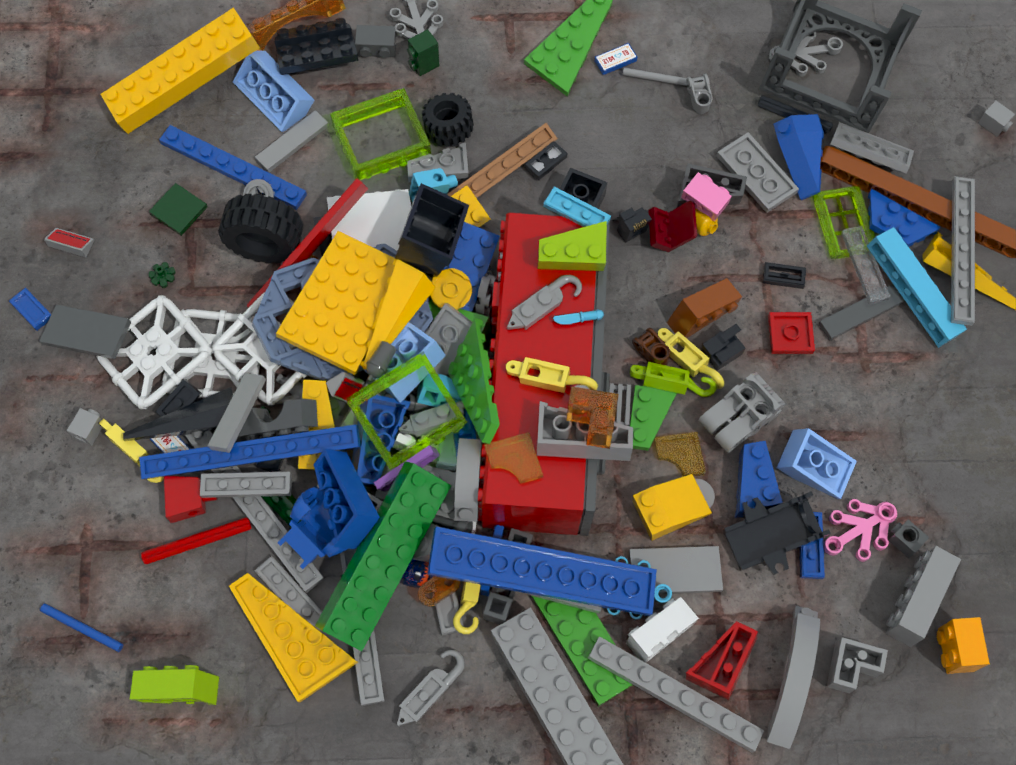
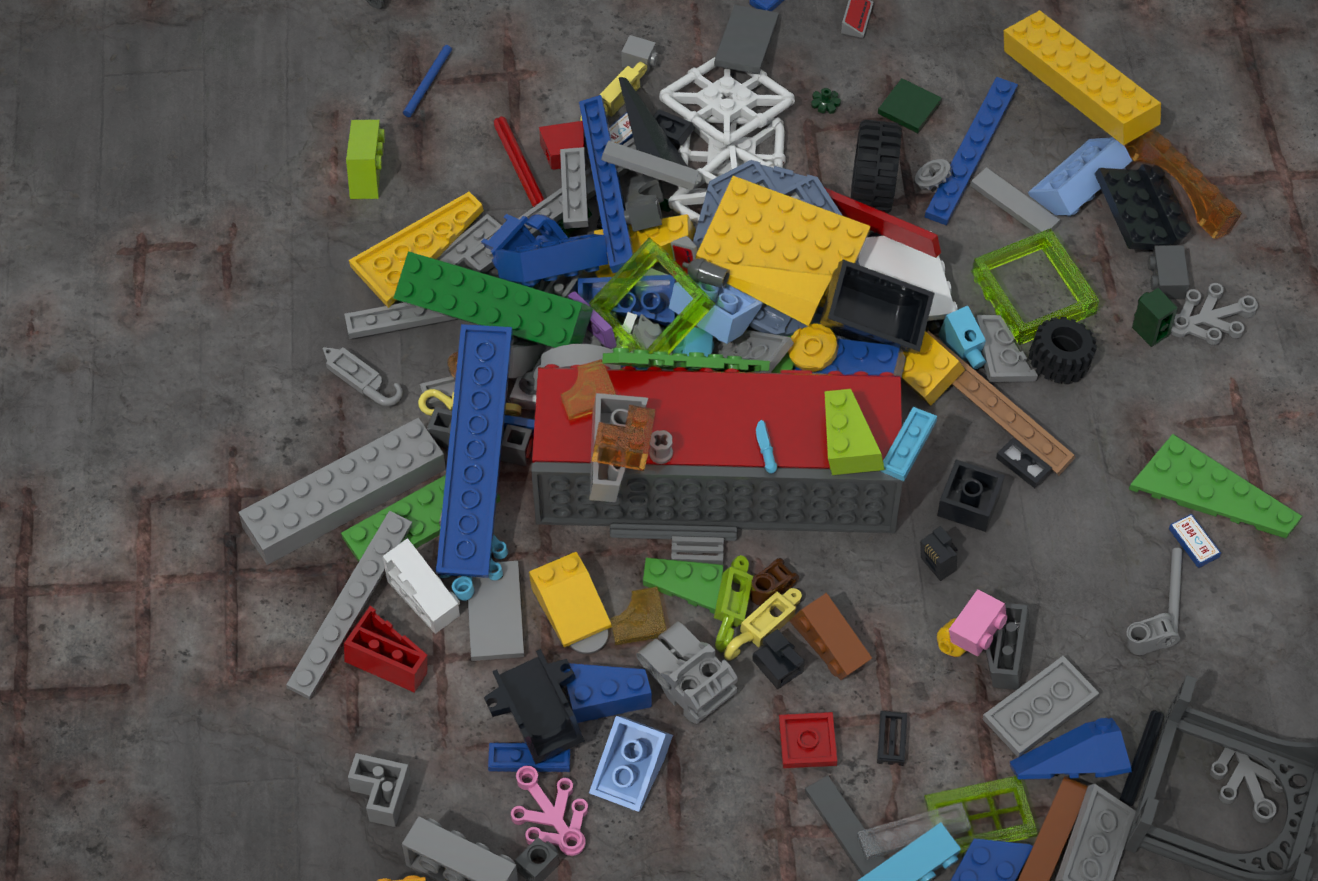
camera: 90 degrees right, 10 degrees down
(541, 303) = (781, 411): light grey plate -> none
(551, 376) = (685, 419): light yellow piece -> none
(672, 228) = (939, 594): dark red bracket -> none
(796, 678) = (371, 713): light grey arch -> none

